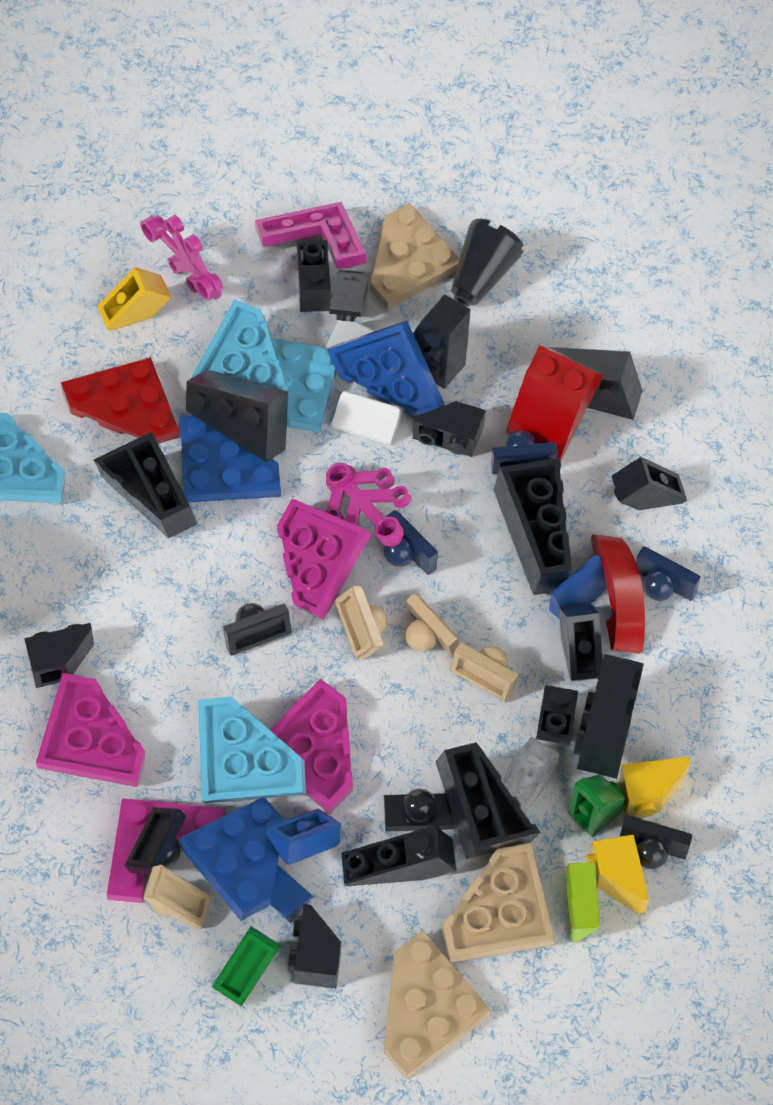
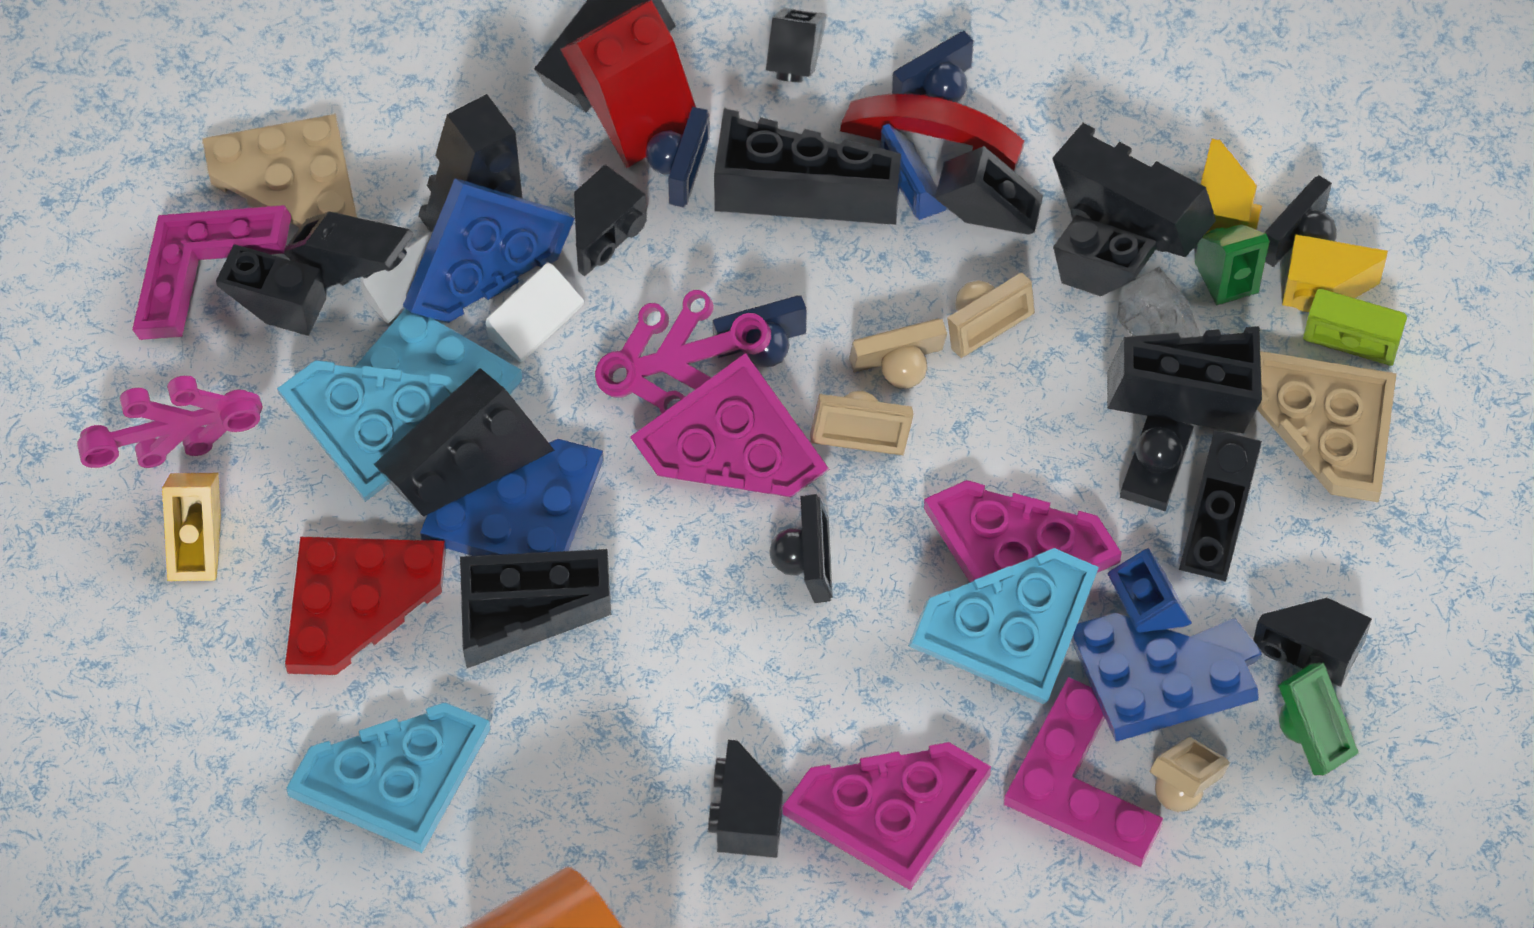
camera: 65 degrees left, 0 degrees up
(157, 841) = (1101, 764): black tile -> none
(427, 1006) = (1427, 545): tan plate -> none
(484, 260) = (357, 83): black cone -> none

